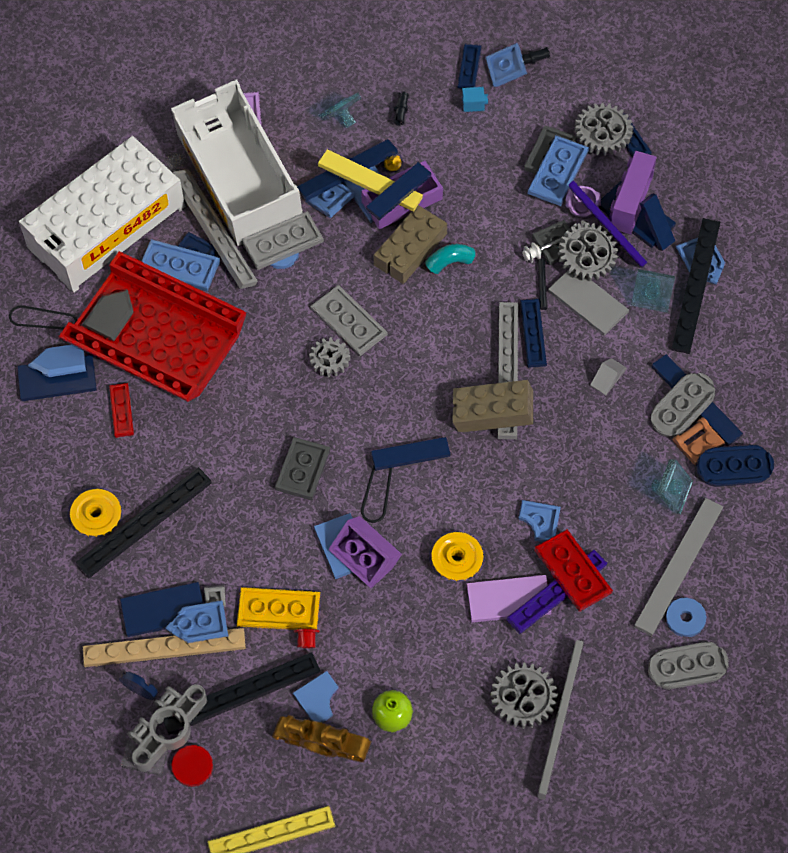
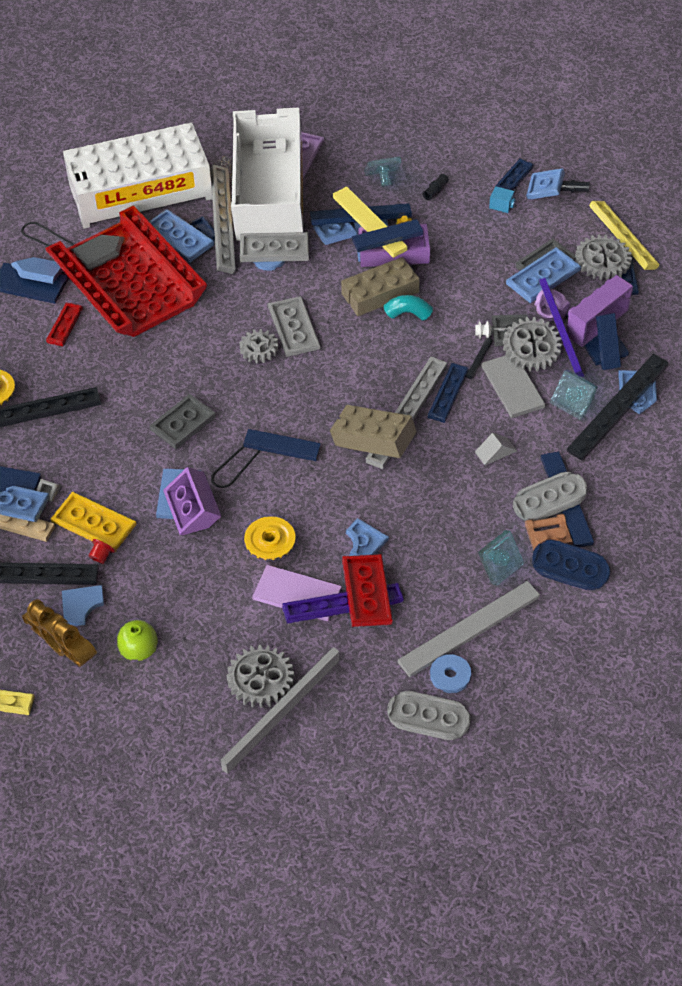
camera: 25 degrees right, 10 degrees down
(607, 94) = (620, 230): none -> light yellow tile

